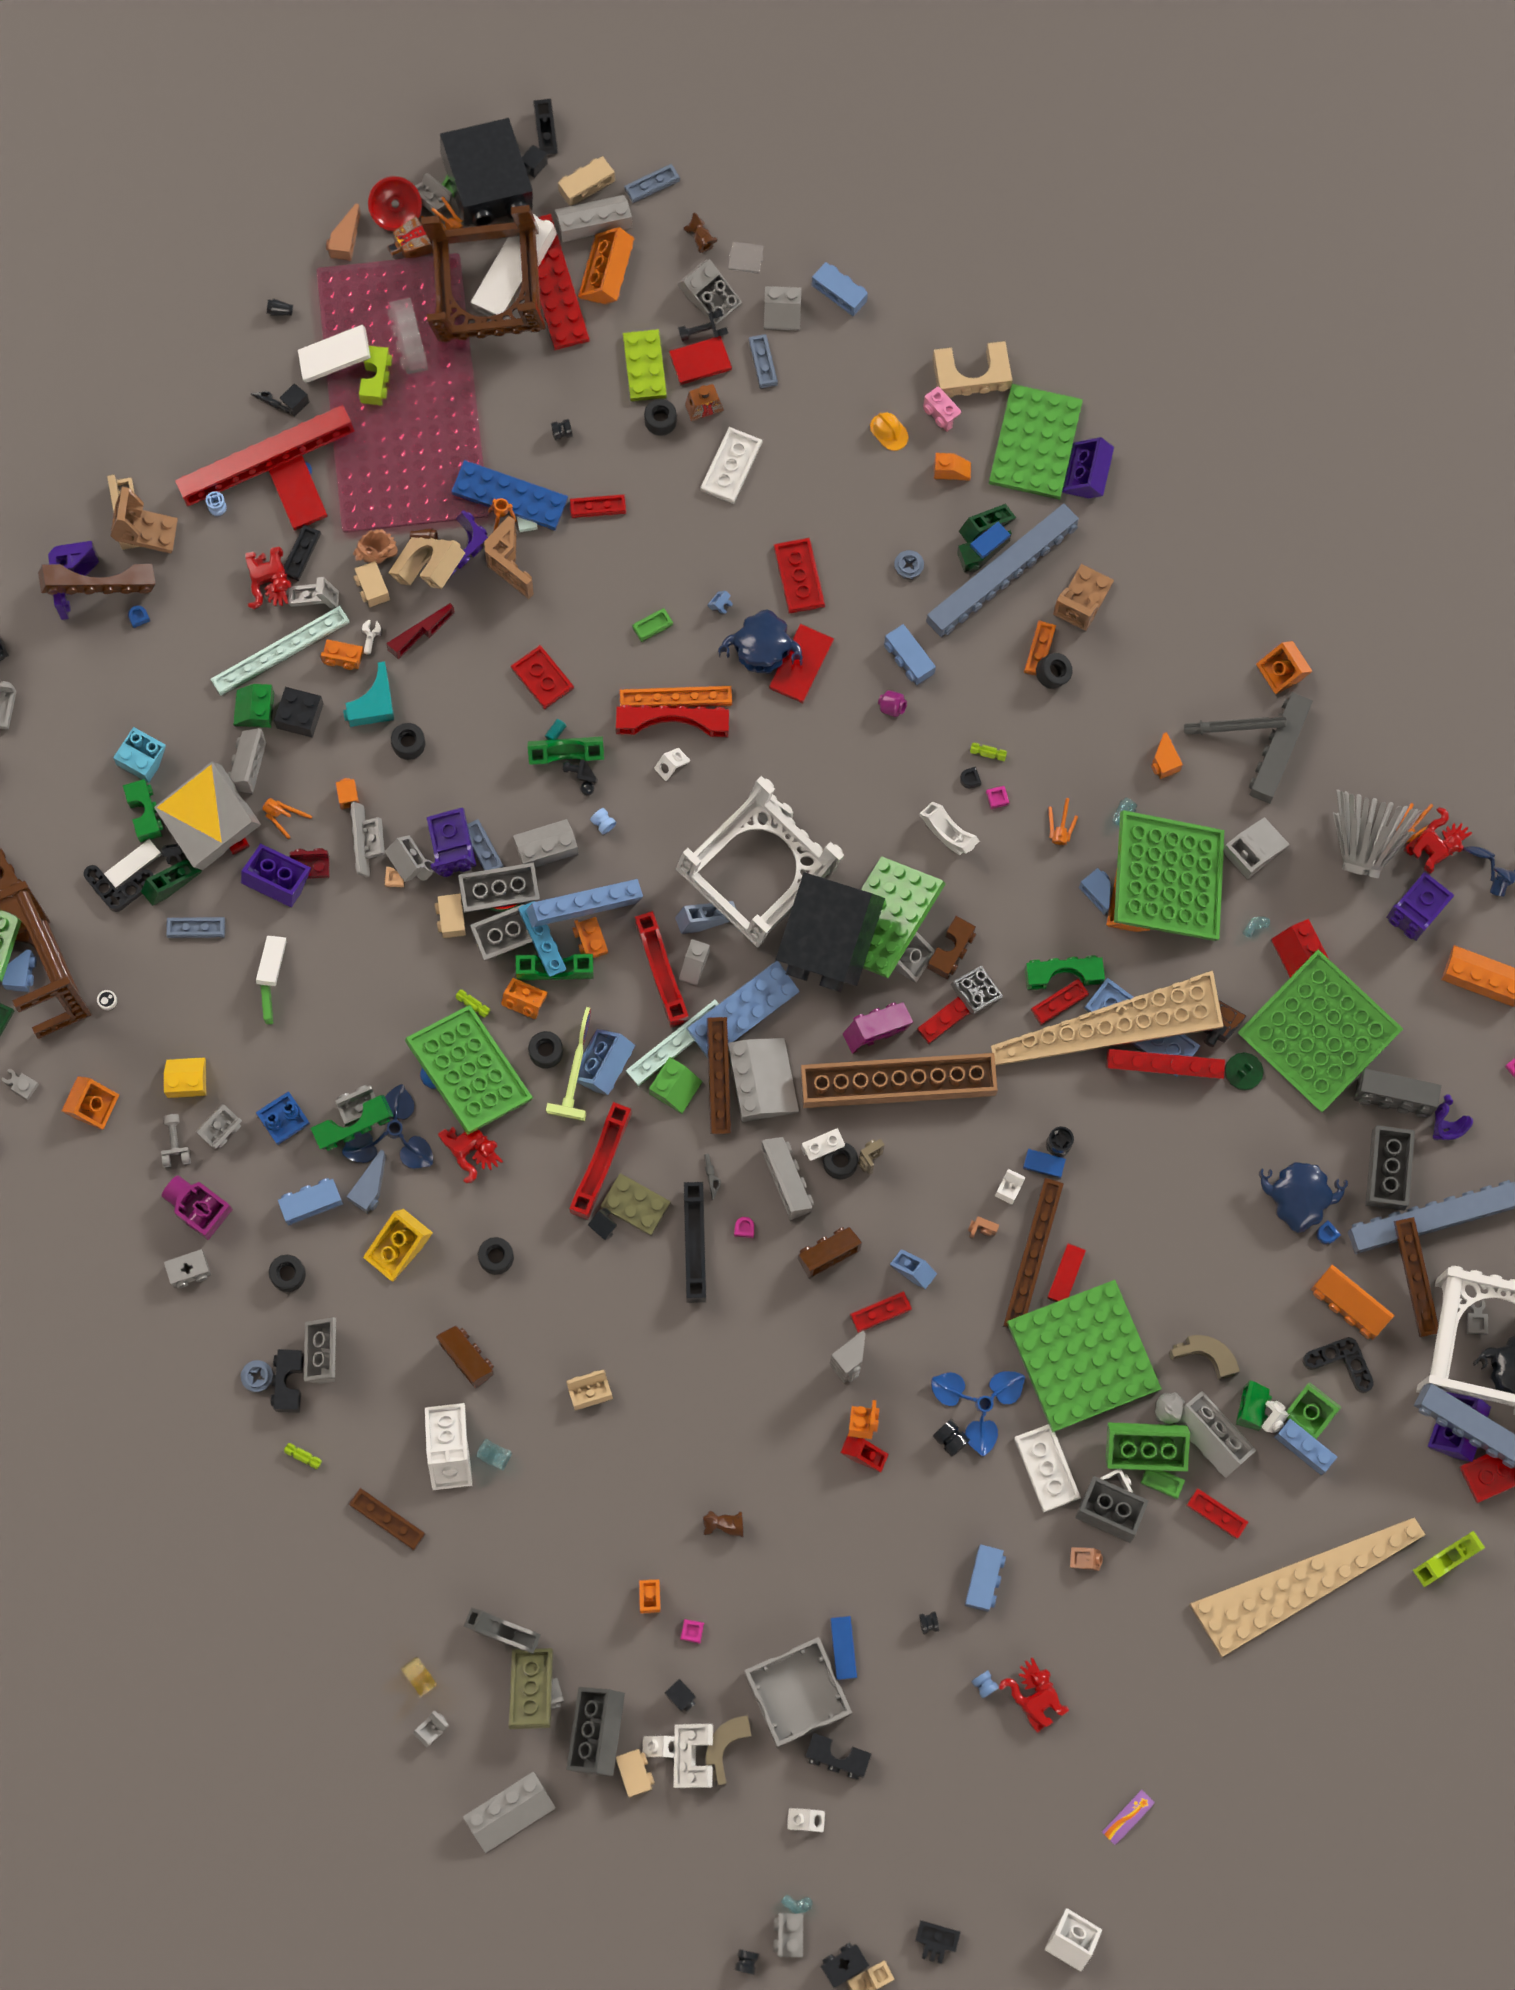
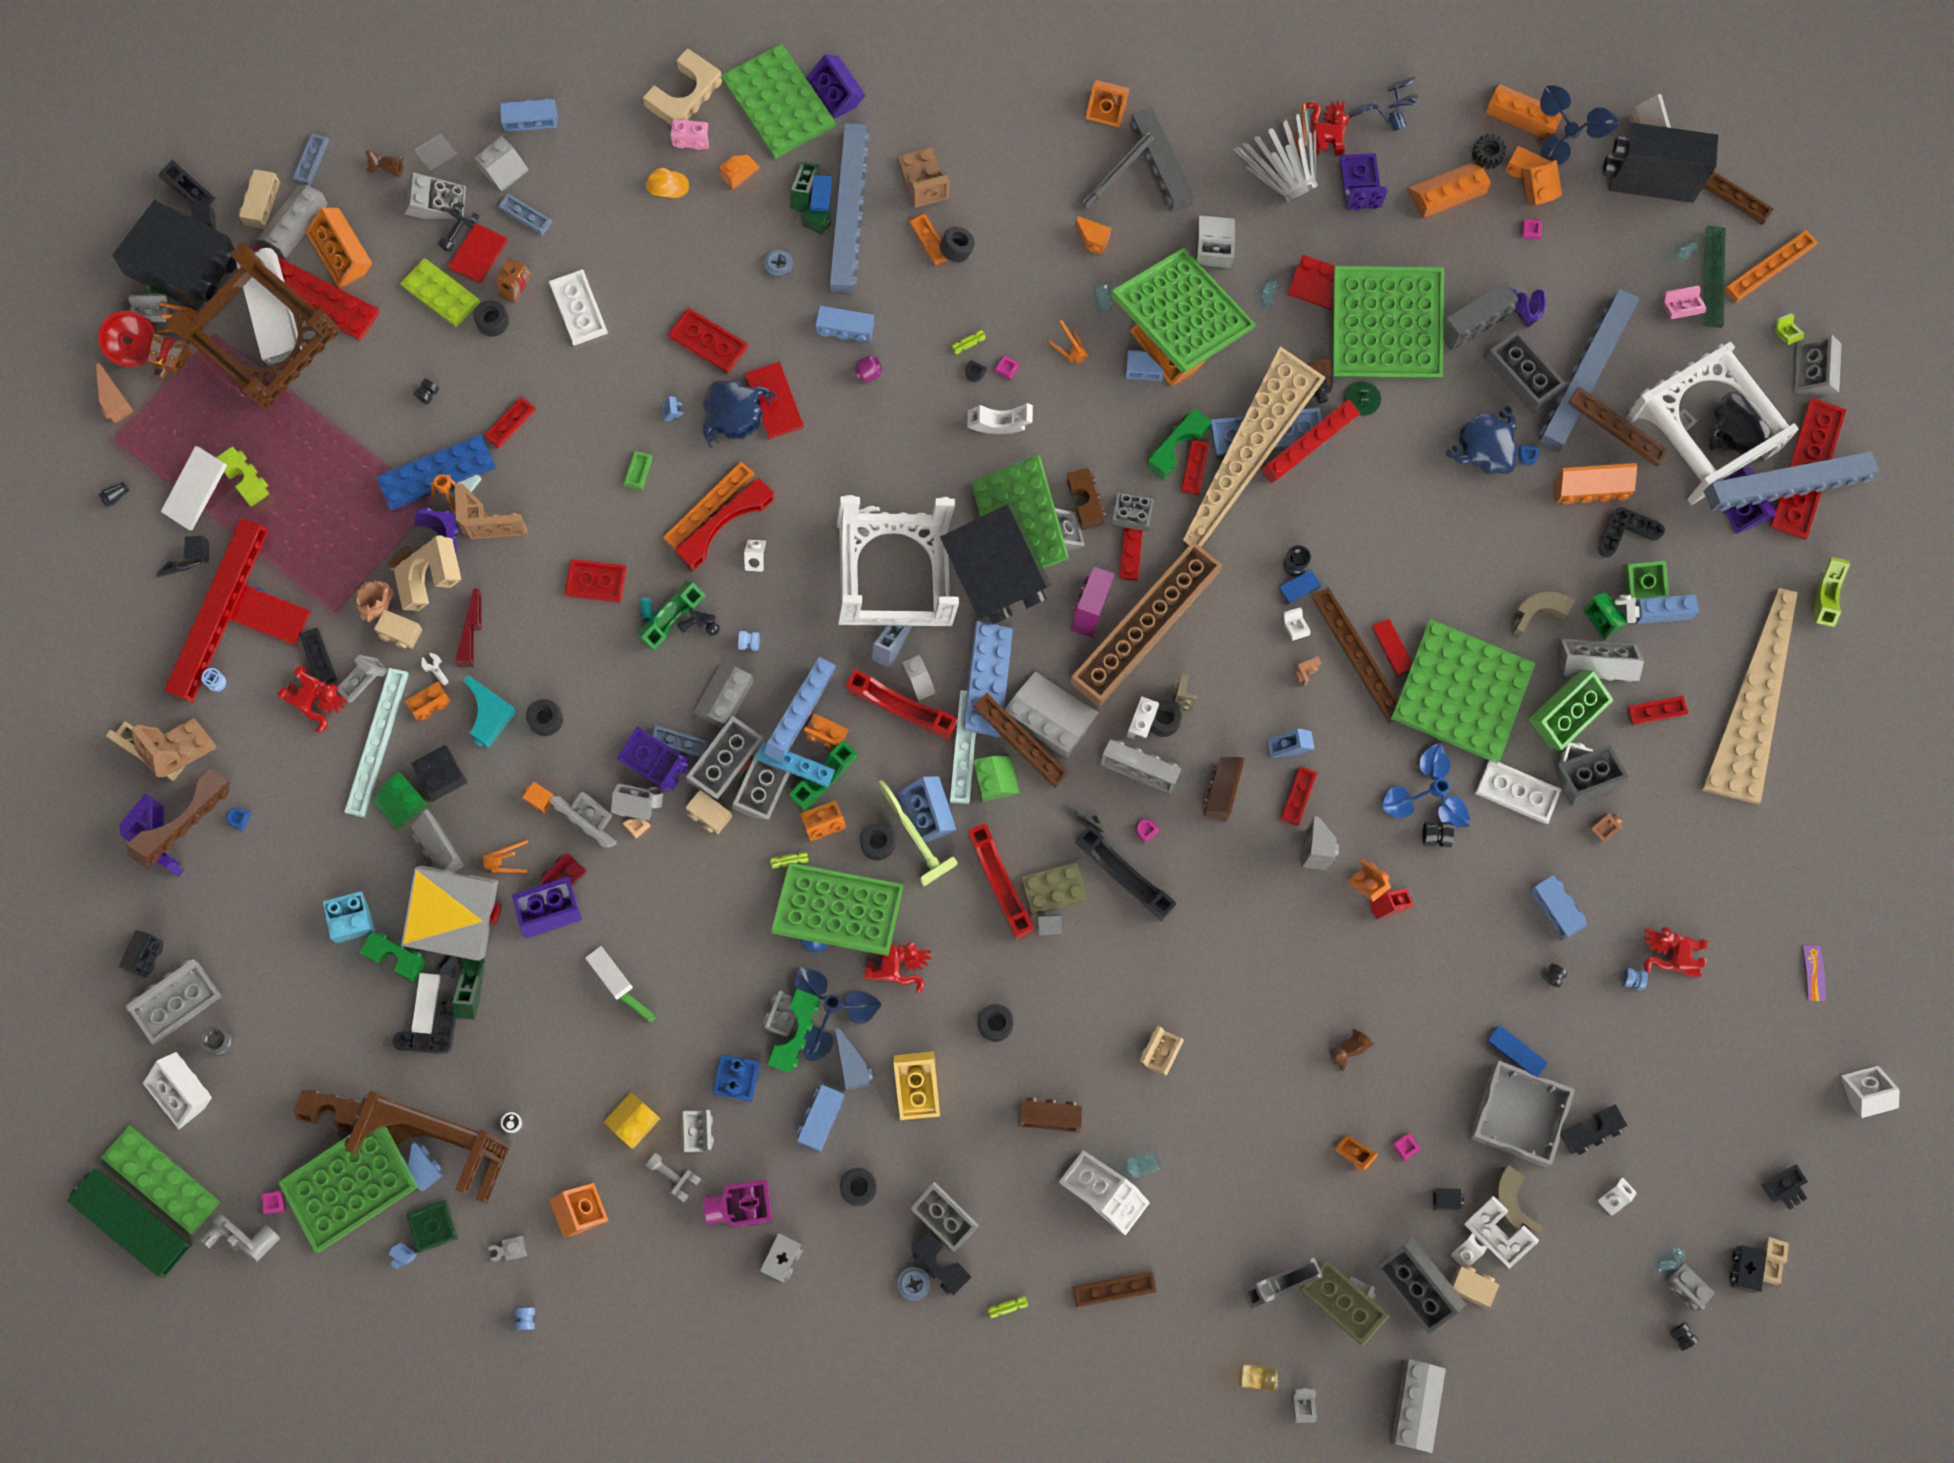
camera: 45 degrees left, 0 degrees up
(196, 927) = (523, 1004): sand blue tile -> none
(408, 335) = (239, 425): clear brick -> none
(1163, 1482) = (1601, 725): bright green tile -> none
(1169, 1408) = (1556, 669): light grey hair -> none

